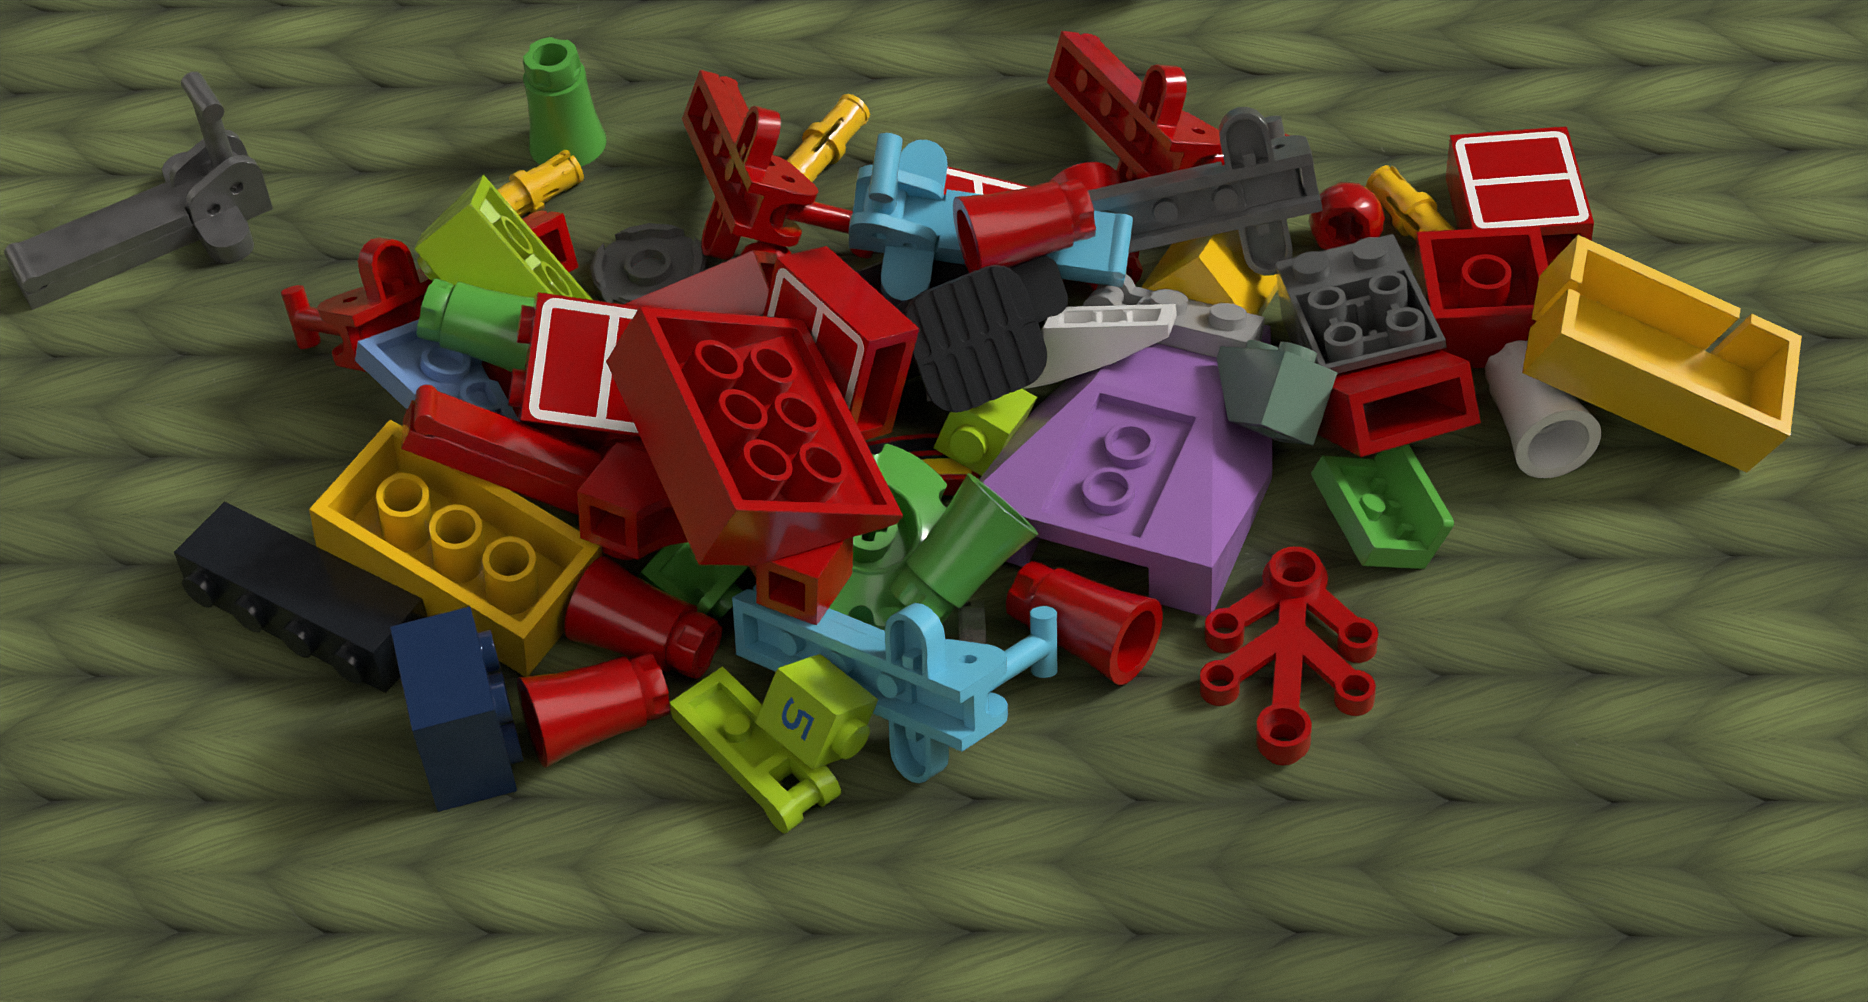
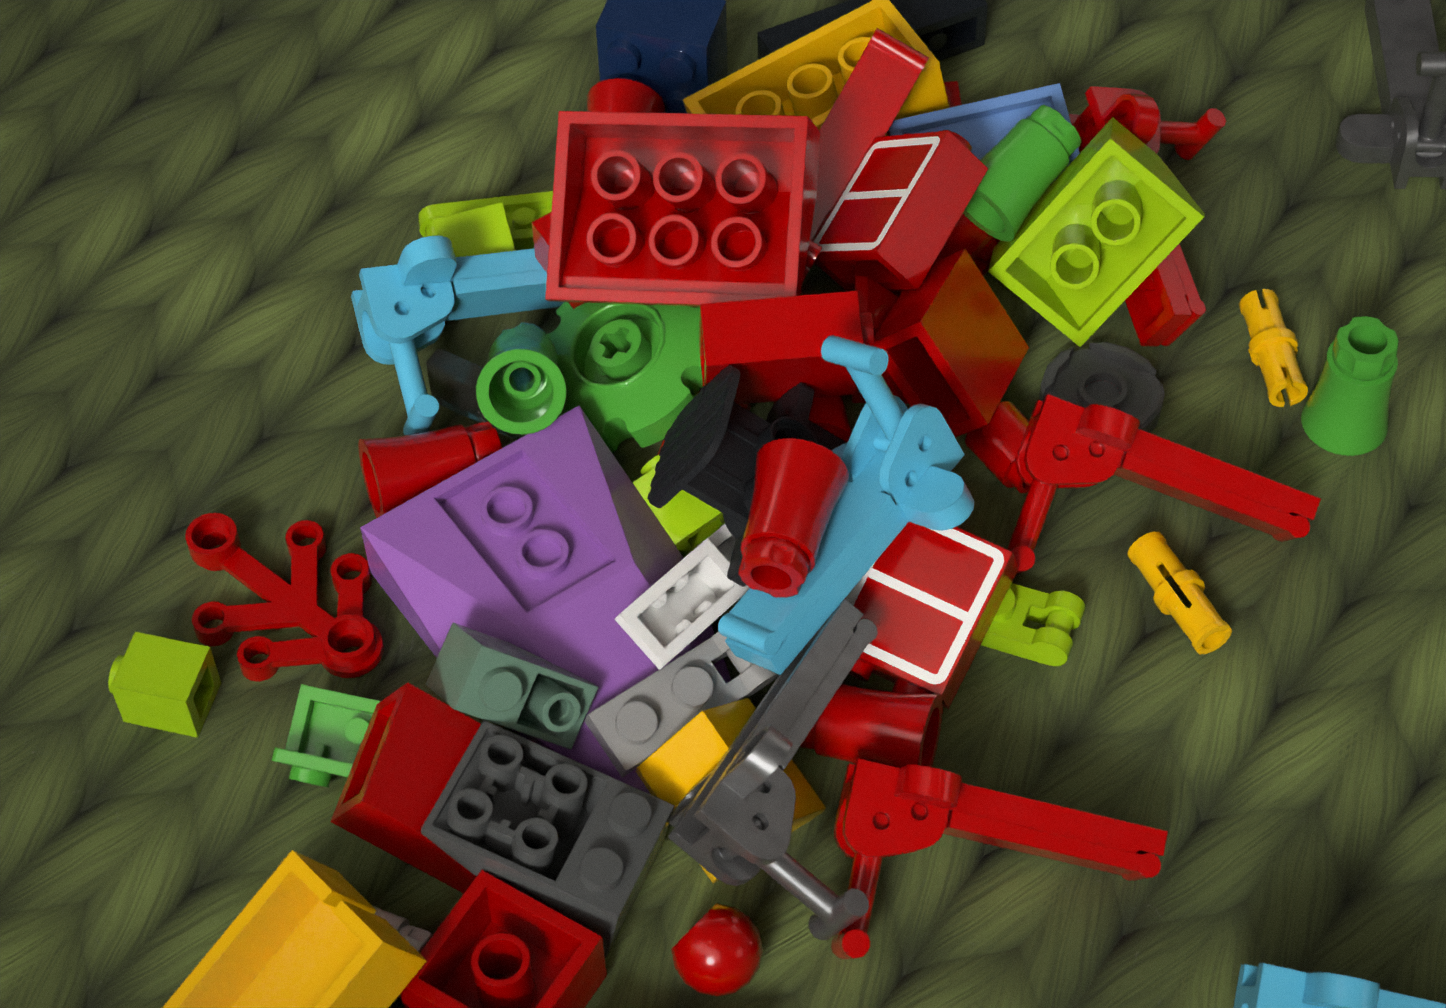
camera: 120 degrees right, 5 degrees up
(1447, 662) = (165, 684): none -> lime brick

